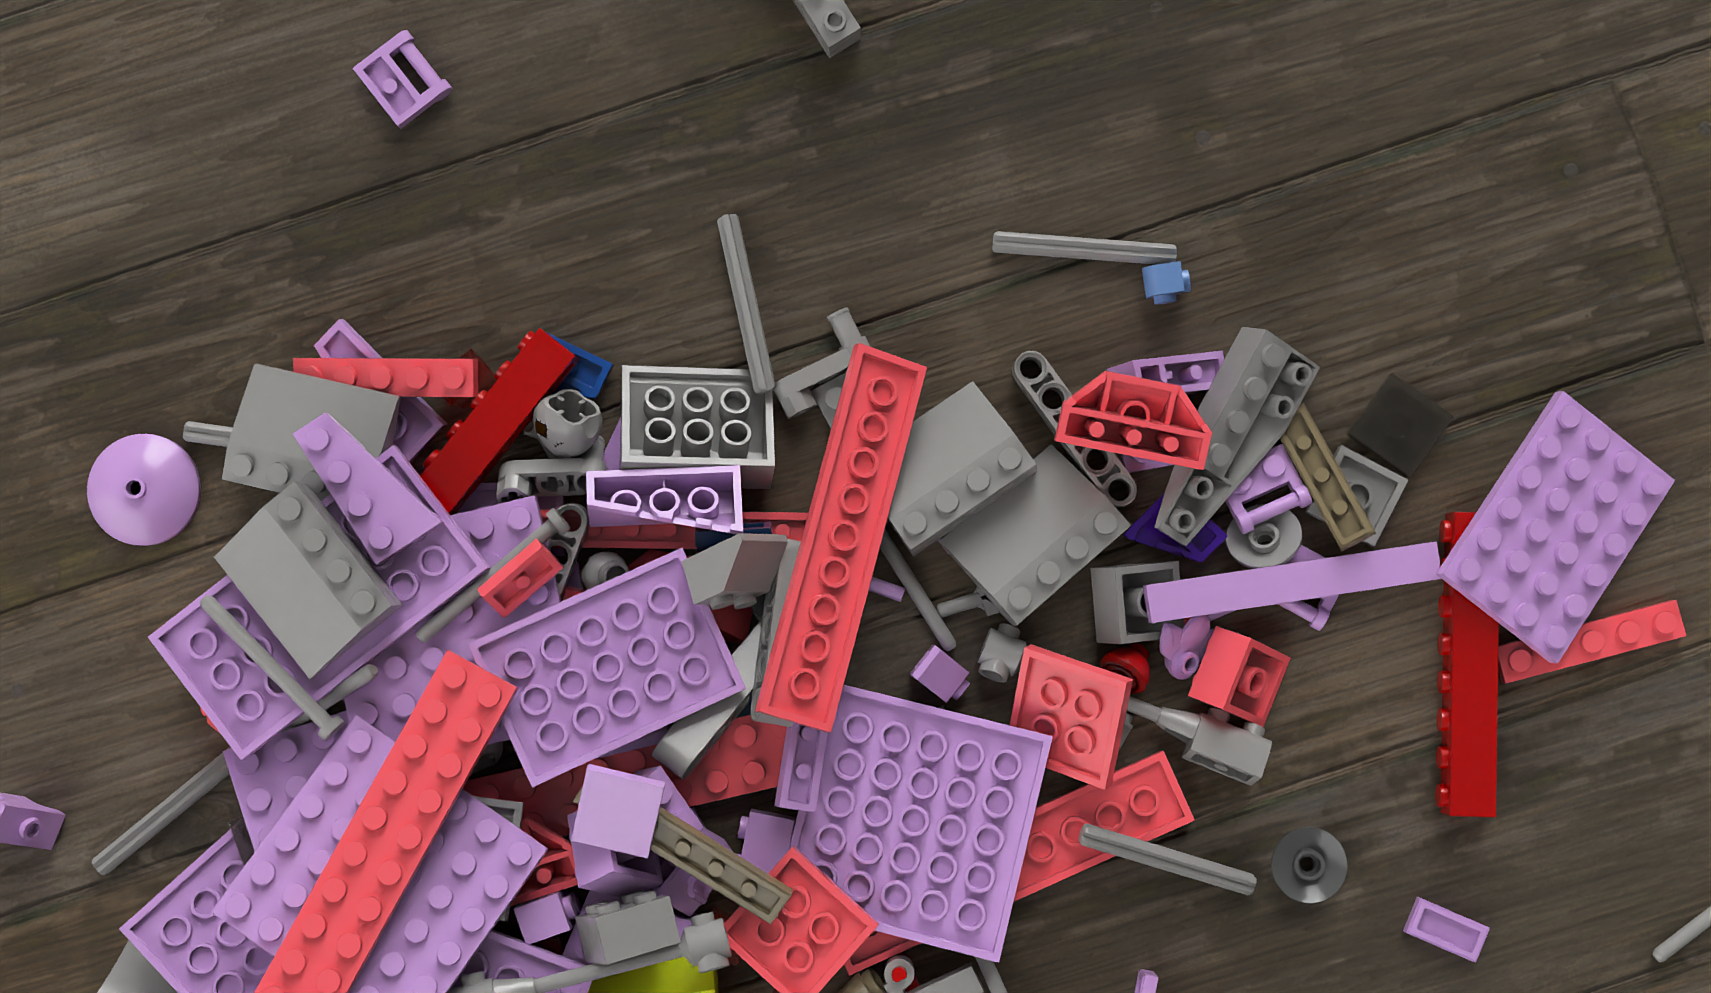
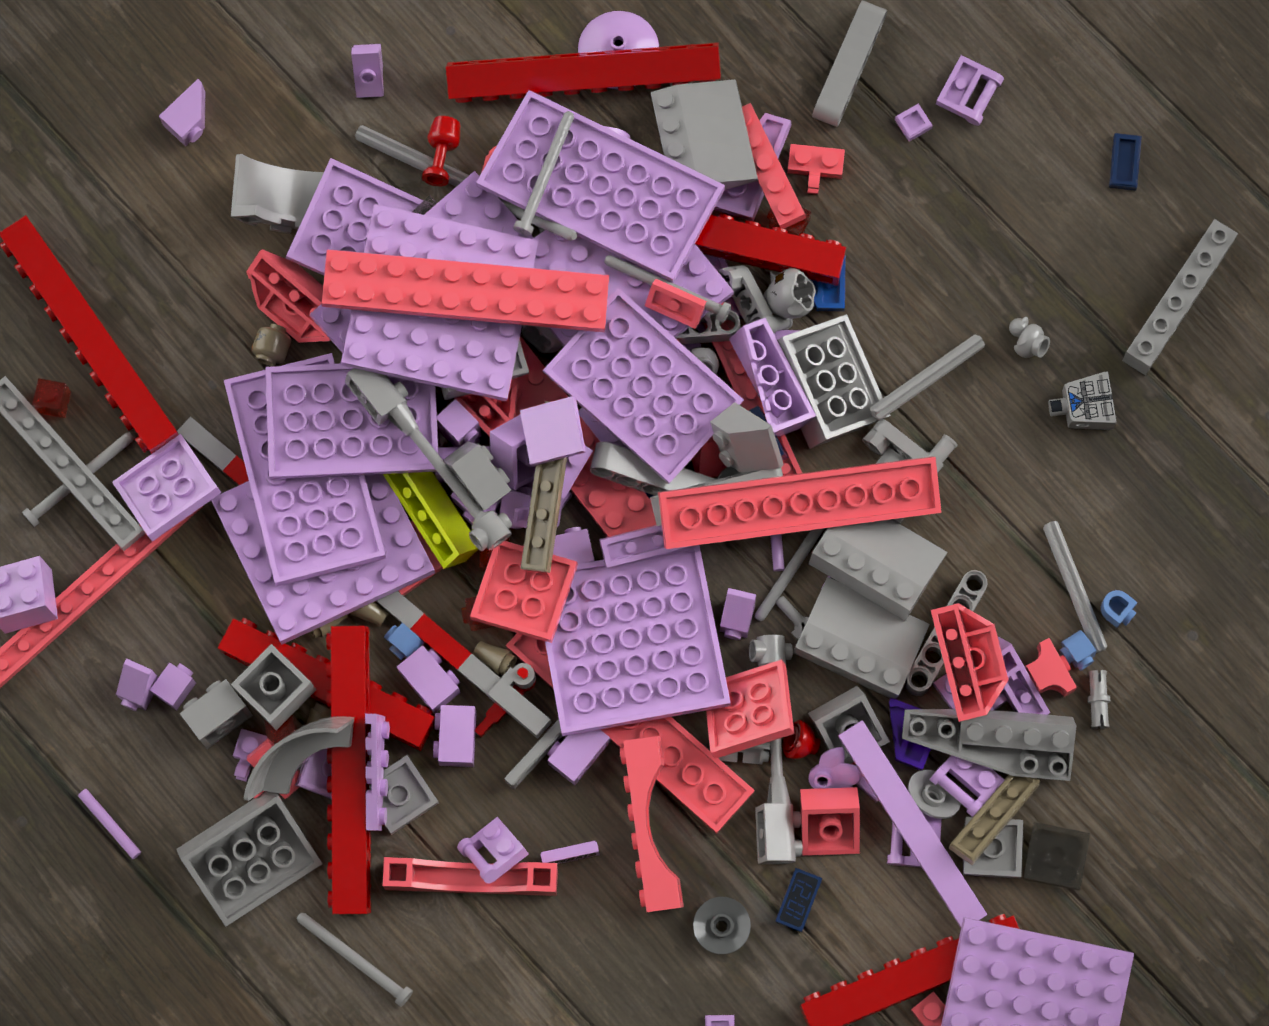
camera: 70 degrees right, 10 degrees down
(152, 551) = (583, 71): none -> red brick
(157, 761) = (444, 137): none -> red piece
(298, 210) = (849, 63): none -> light grey beam
(306, 578) = (613, 169): light grey slope -> none
(369, 495) = (682, 189): lavender wing -> none
(408, 312) = (816, 163): none -> coral plate
(411, 167) = (913, 122): none -> lavender tile
(756, 153) = (1031, 338): none -> light grey animal
(867, 126) = (1086, 403): none -> light grey torso
(1024, 949) = (577, 753): none -> lavender brick
(1136, 209) = (1118, 608): none -> medium blue plate
(1167, 859) = (681, 825): light grey axle -> none
(1175, 327) = (1051, 670): none -> coral brick
(1224, 916) = (644, 764): none -> coral arch
(1233, 285) = (1099, 699): none -> light grey pin
(1315, 756) = (798, 900): none -> tile

